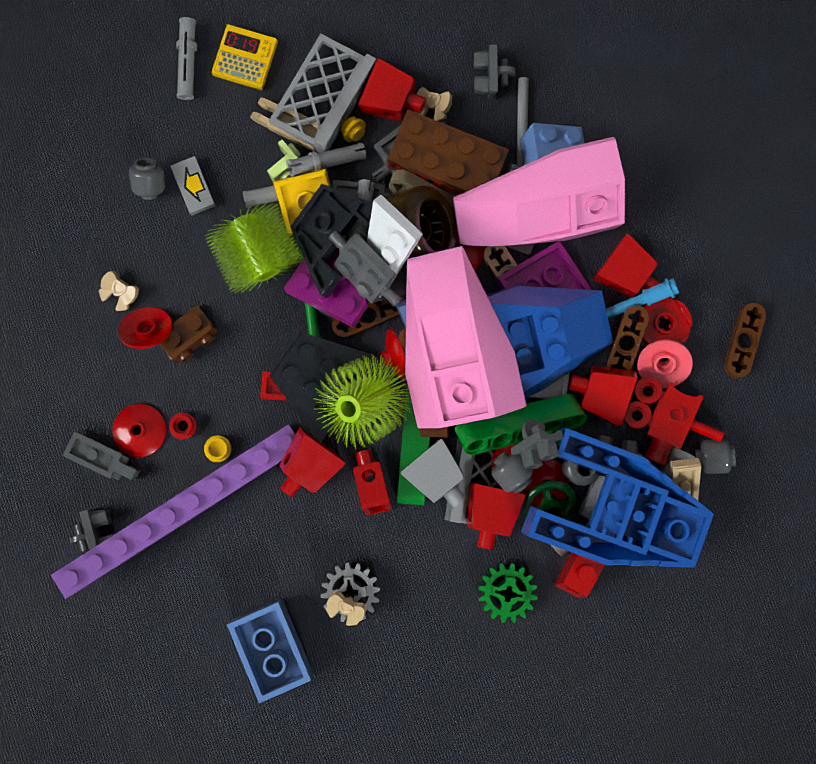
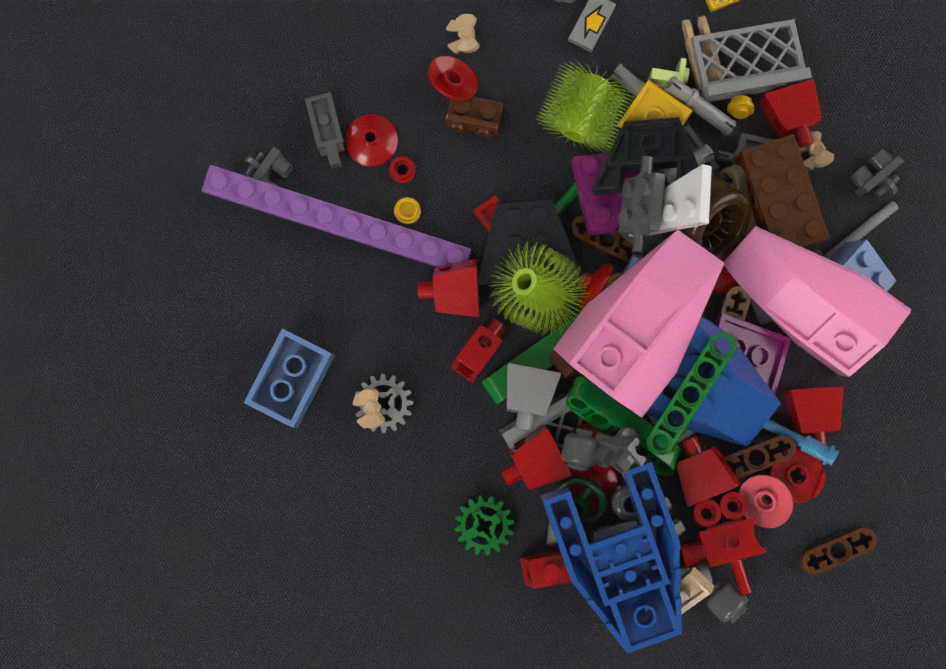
camera: 45 degrees right, 0 degrees up
(538, 366) = (682, 403): none -> green beam

